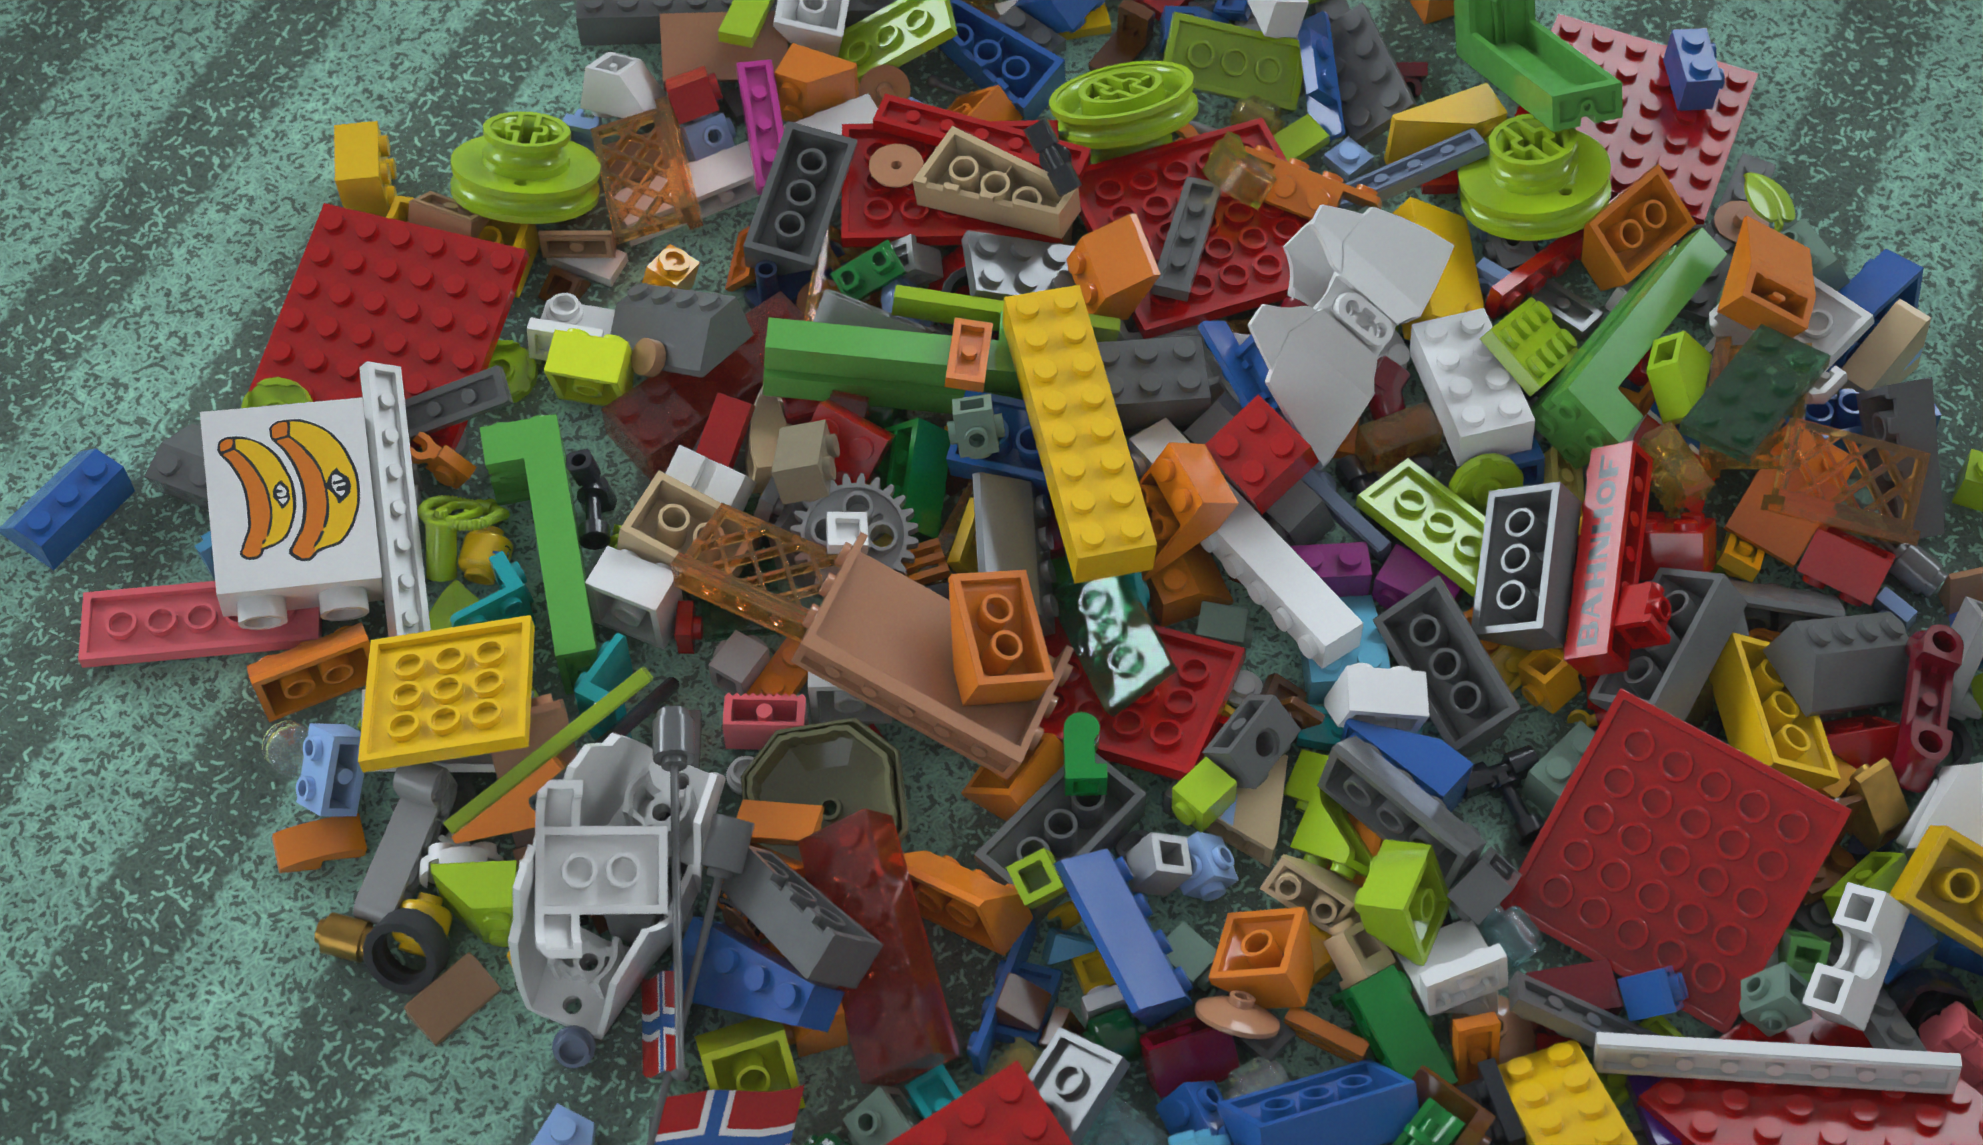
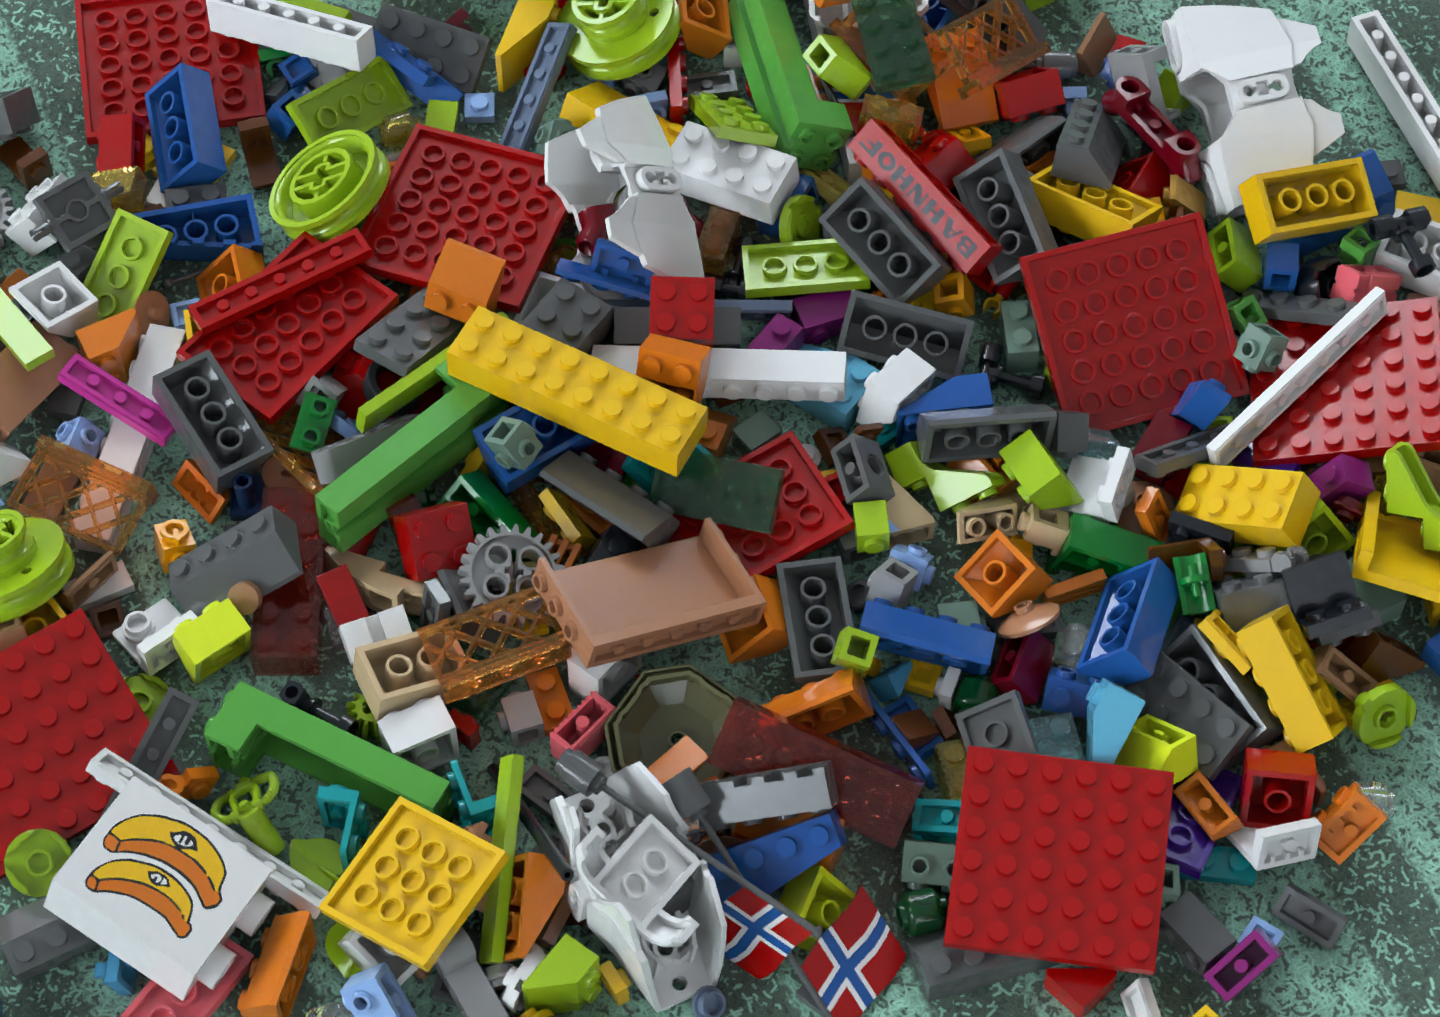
camera: 50 degrees left, 0 degrees up
(476, 550) = (289, 811): yellow head -> none
(693, 94) = (48, 416): red brick -> none
(805, 462) = (444, 555): dark tan brick -> none
(843, 528) = (516, 572): white plate -> none
(895, 165) = (249, 344): nougat piece -> none
(968, 355) = (459, 406): orange plate -> none
(993, 186) = (334, 299): tan wedge -> none
(997, 638) = (674, 547): orange slope -> none
(1053, 157) = (356, 246): black bar -> none
(1079, 750) = (788, 569): green leg -> none
(1186, 238) = (473, 225): dark grey plate -> none
(1238, 171) = (458, 164): clear yellow brick -> none
(1303, 190) = (505, 143): orange bracket -> none
(1643, 615) = (983, 209): red brick -> none
(1870, 931) = (1272, 267): white arch -> none

